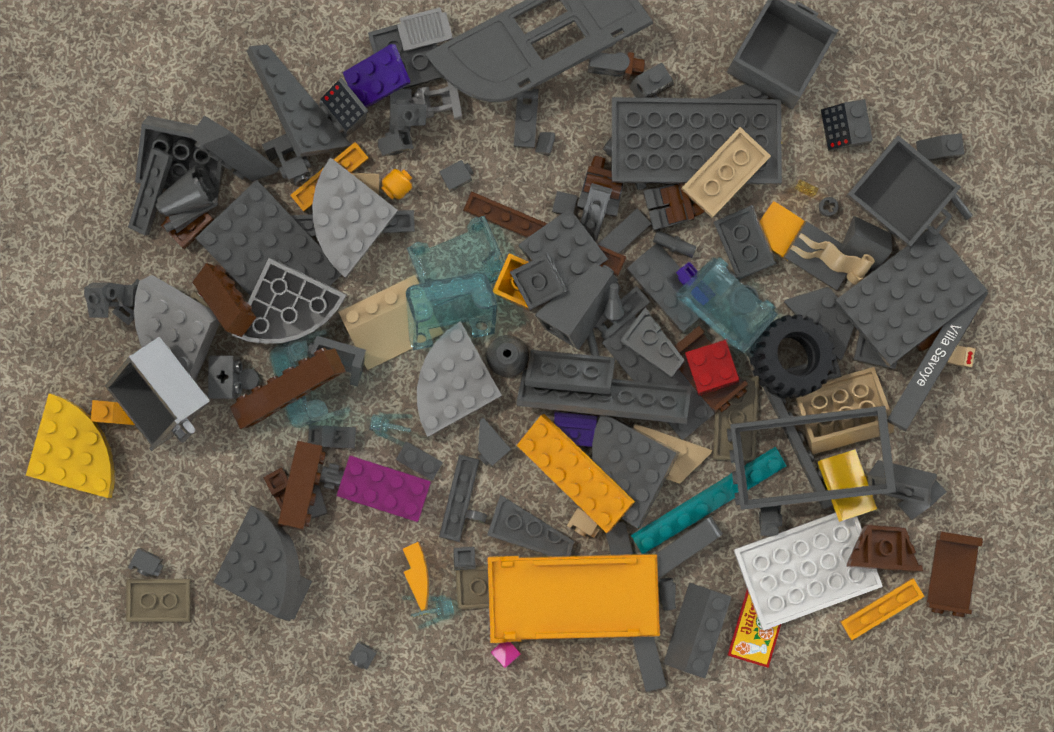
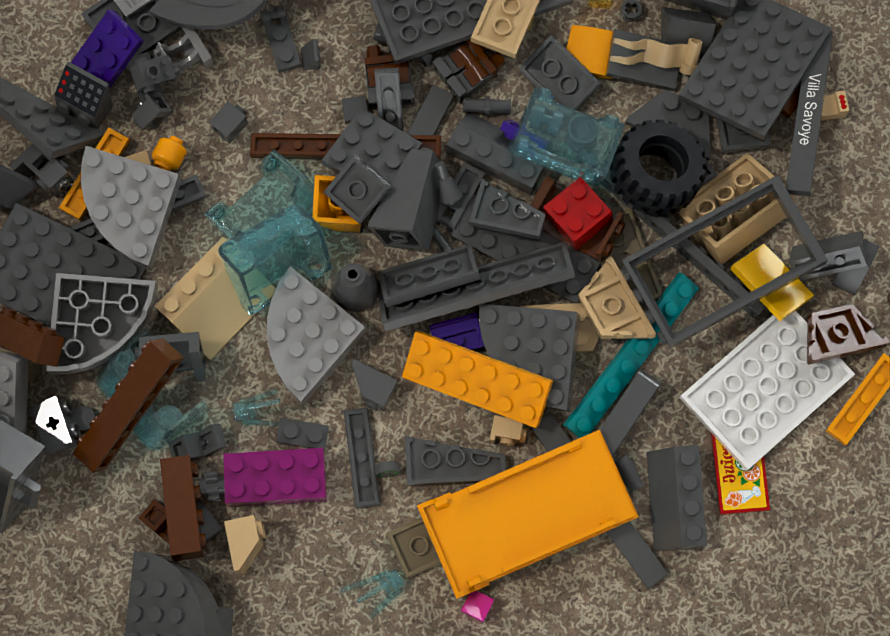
camera: 20 degrees left, 10 degrees down
(340, 531) = (245, 541): none -> tan slope
(418, 574) = (347, 555): light orange slope -> none
(464, 558) = (392, 520): dark grey tile -> none
(710, 456) = (614, 306): none -> tan wing
(769, 520) = (705, 349): dark grey brick -> none

